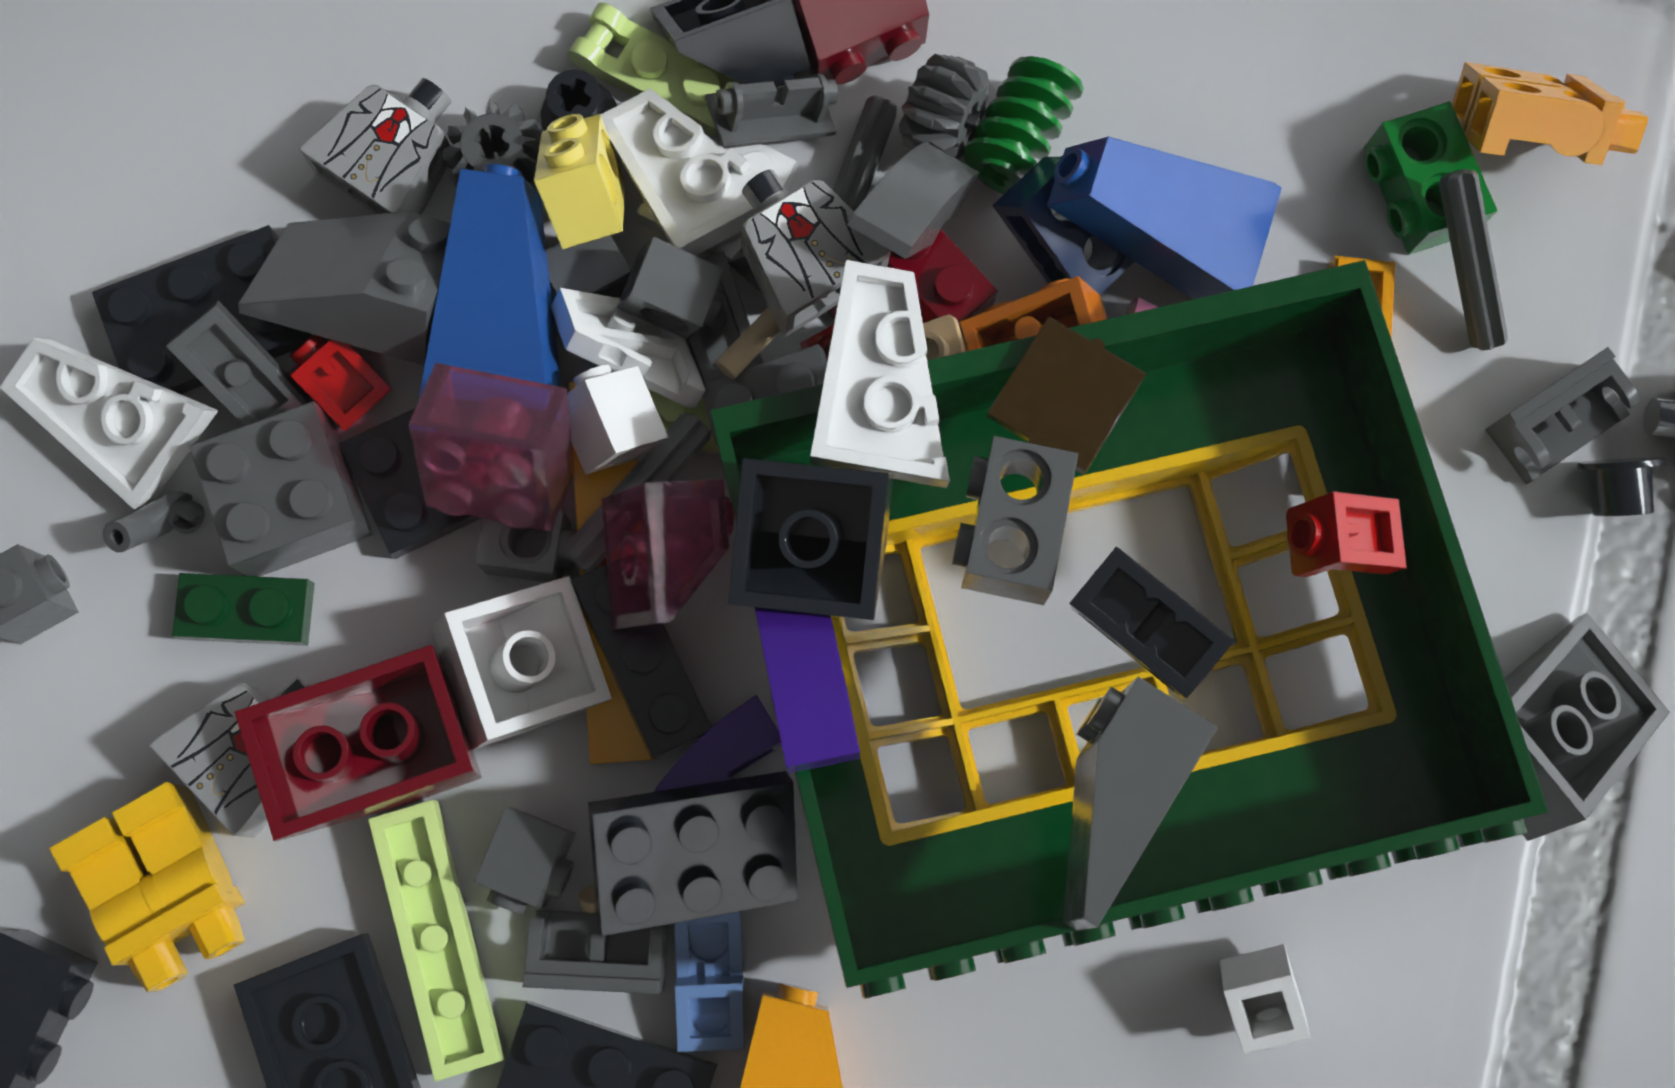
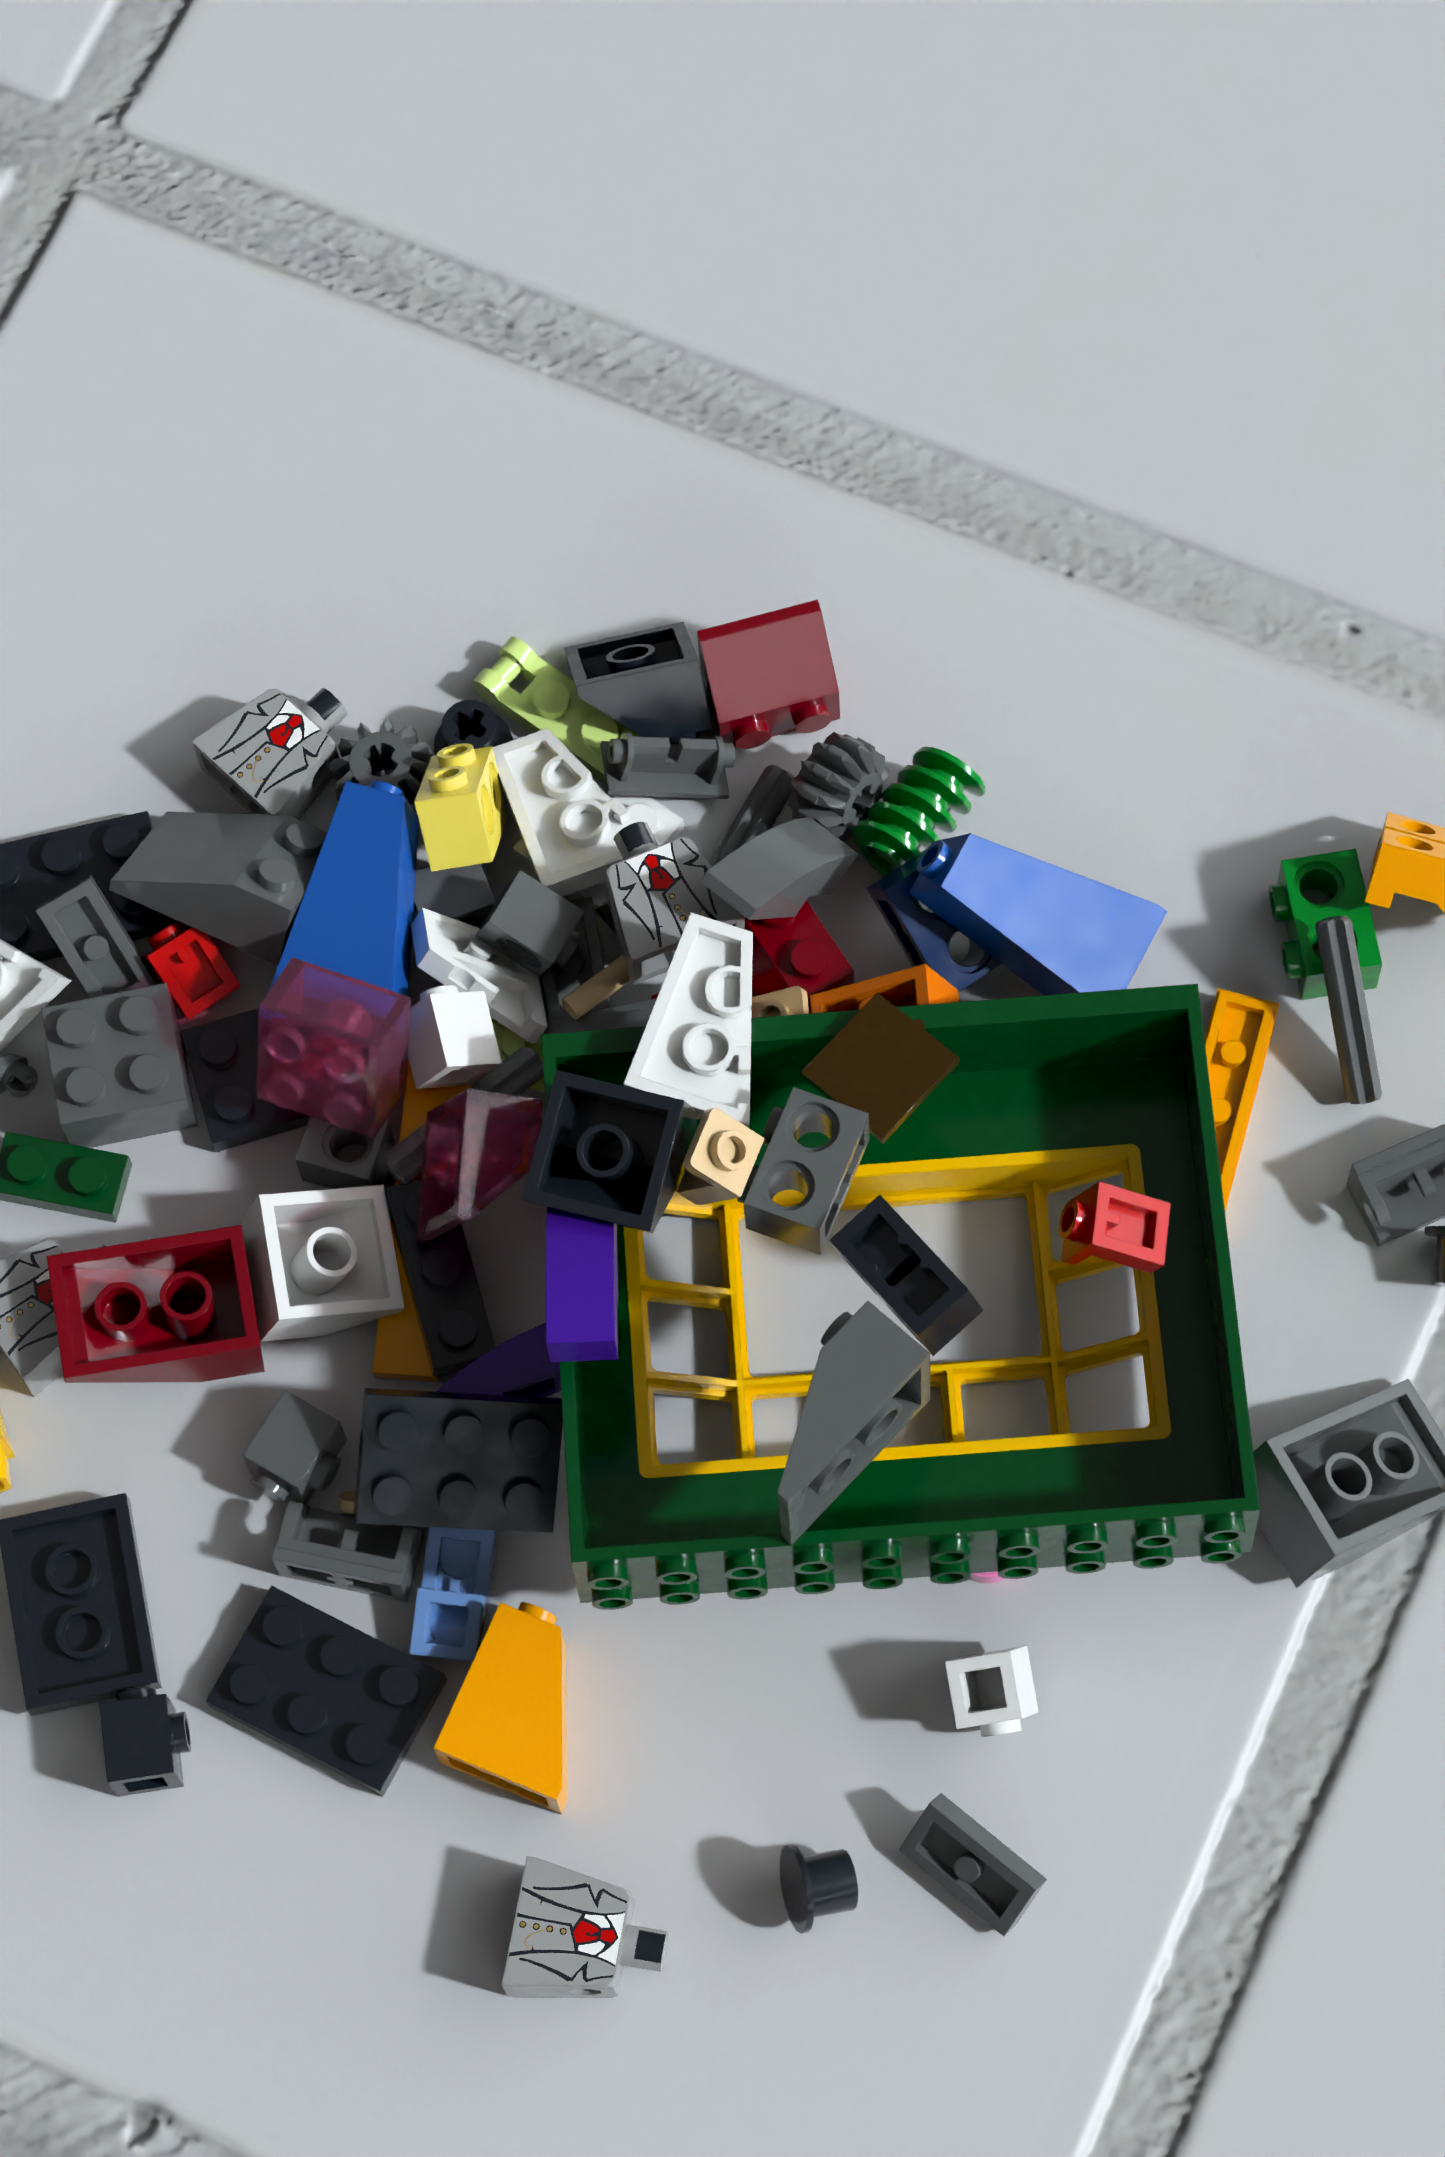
camera: 20 degrees right, 10 degrees down
(436, 940) = (195, 1513): yellowish green plate -> none
(928, 526) = (719, 1159): none -> tan bracket

